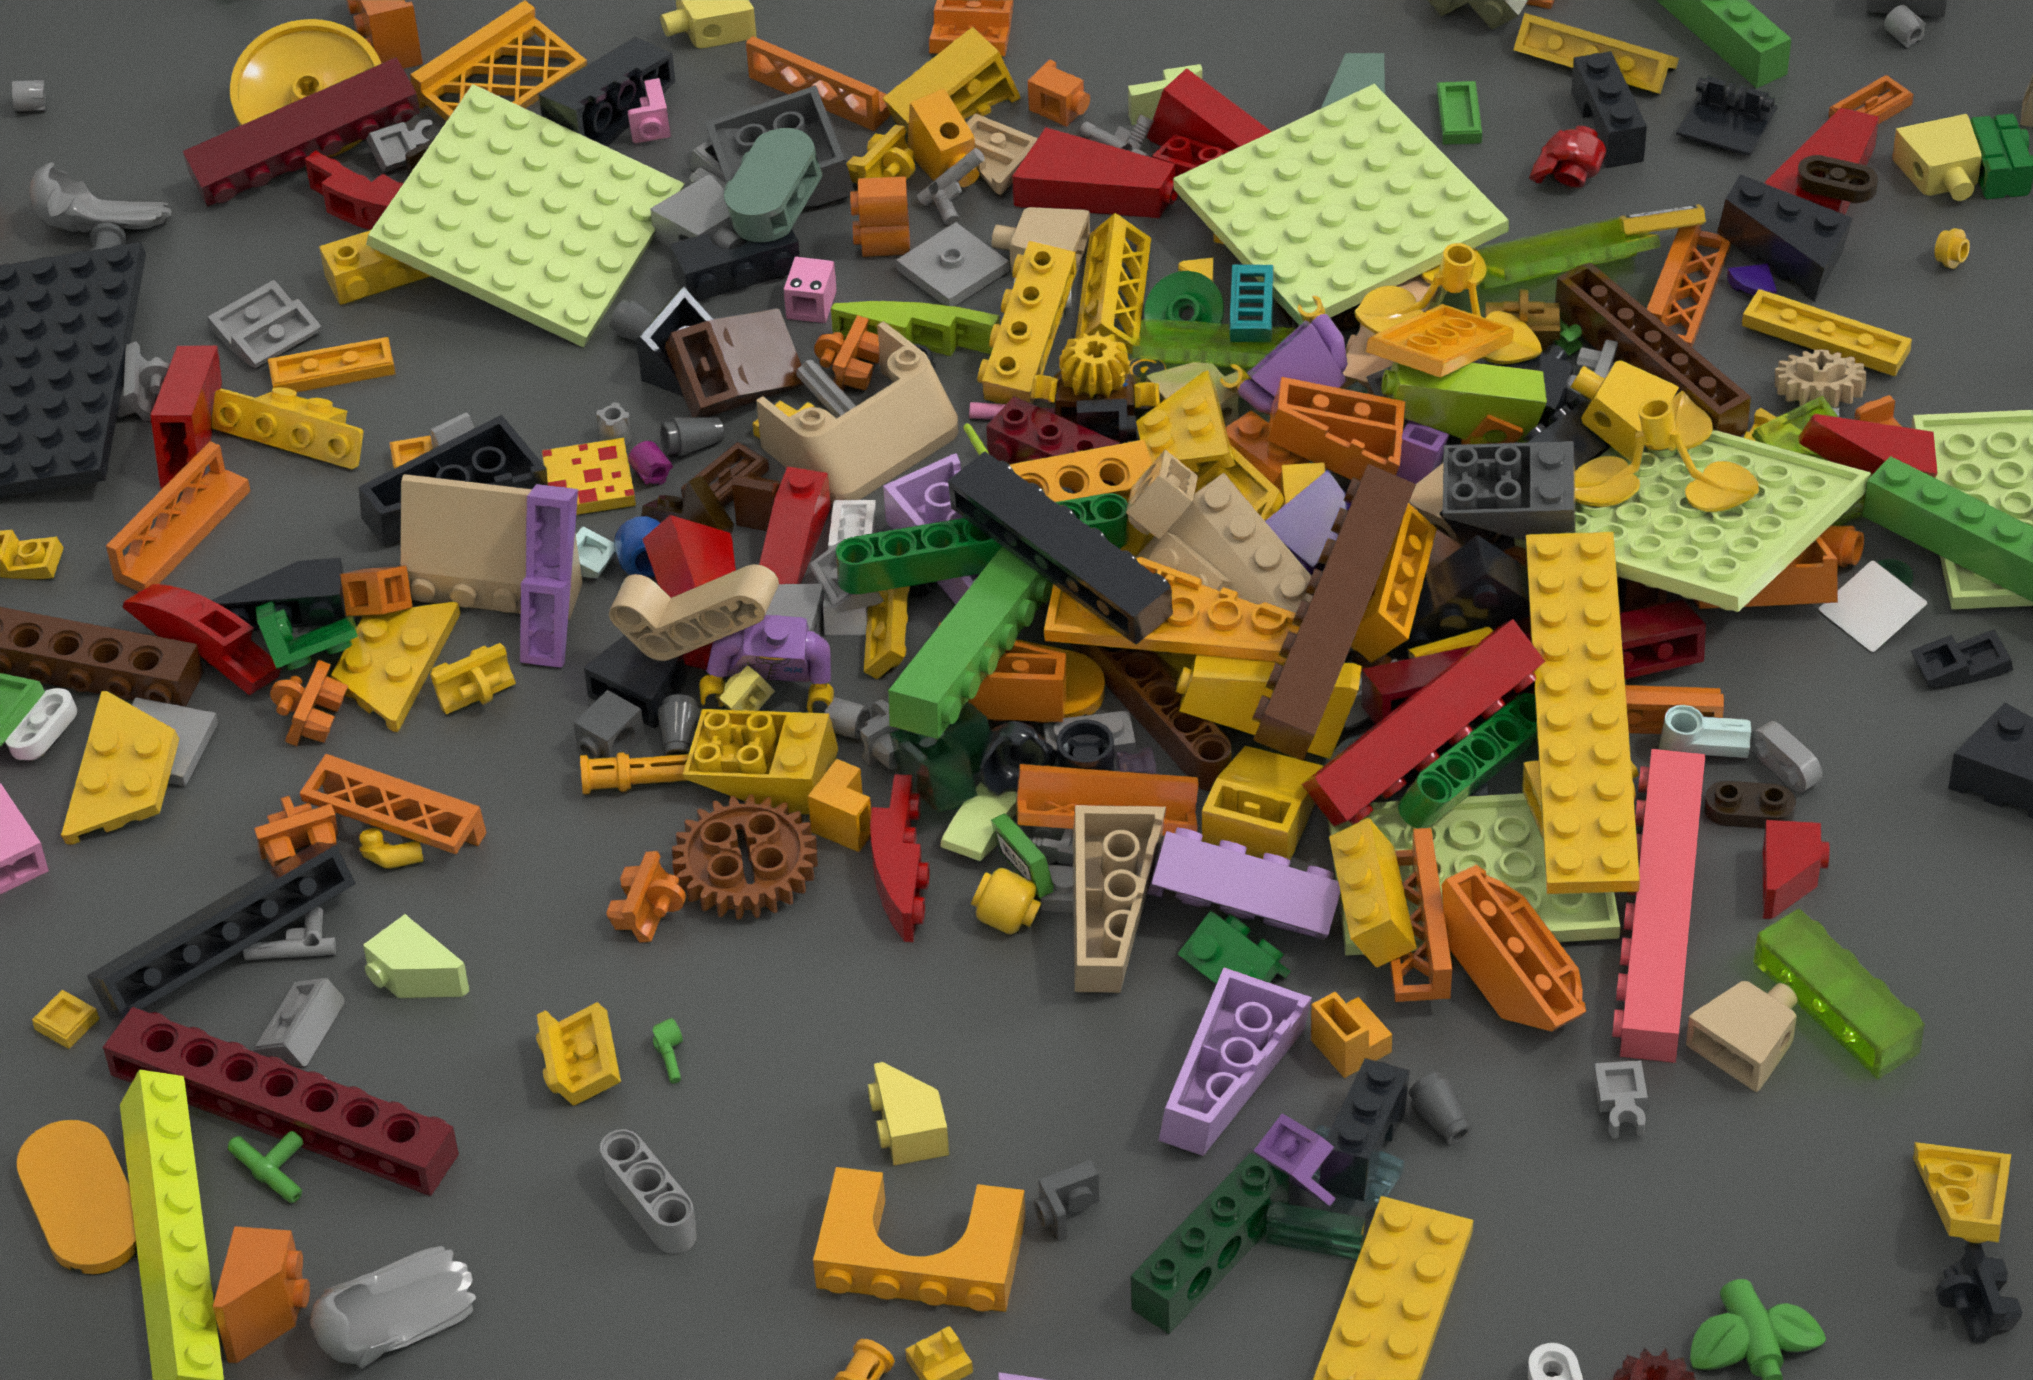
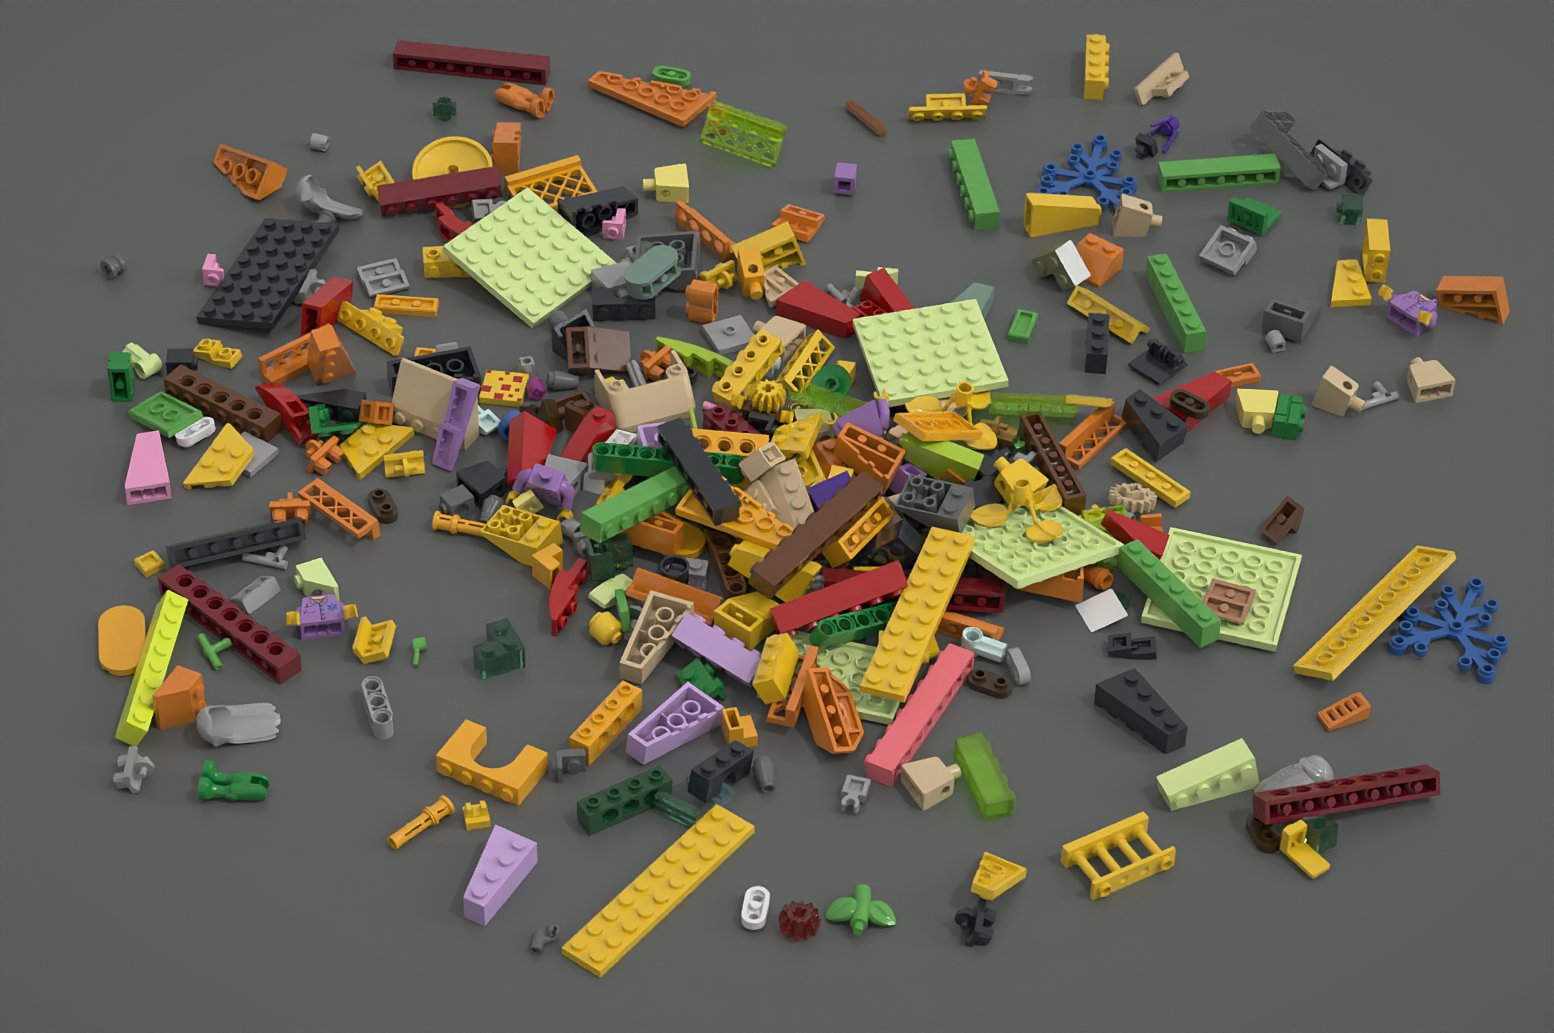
camera: 15 degrees right, 5 degrees down
(166, 136) = (374, 176): none -> yellow bracket
(239, 507) = (328, 356): none -> orange wedge
(386, 854) = (329, 532): yellow arm -> none
(456, 1031) = (321, 616): none -> medium lavender torso
(458, 768) = (382, 506): none -> dark brown plate
(649, 895) = (439, 581): orange hips -> none
(679, 624) = (504, 461): tan beam -> none
(777, 848) = (477, 573): dark orange gear -> none
(810, 289) = (651, 327): bright pink brick -> none
(832, 1004) = (501, 652): none -> clear green brick
(911, 1116) = (513, 710): light yellow slope -> none
(949, 187) = (744, 296): light grey hose -> none
(1007, 749) = (637, 558): black hair -> none
(1057, 94) = (821, 266): orange brick -> none
(1100, 1087) = (607, 721): none -> light orange brick
(1251, 329) = (858, 401): teal slope -> none
(1297, 1154) = (677, 770): medium lavender panel -> none
(1570, 156) = (1064, 361): red head -> none
(1751, 279) = (1127, 442): dark purple tile -> none
(1791, 863) = (992, 713): red slope -> none
(1952, 248) = (1237, 454): yellow plate -> none

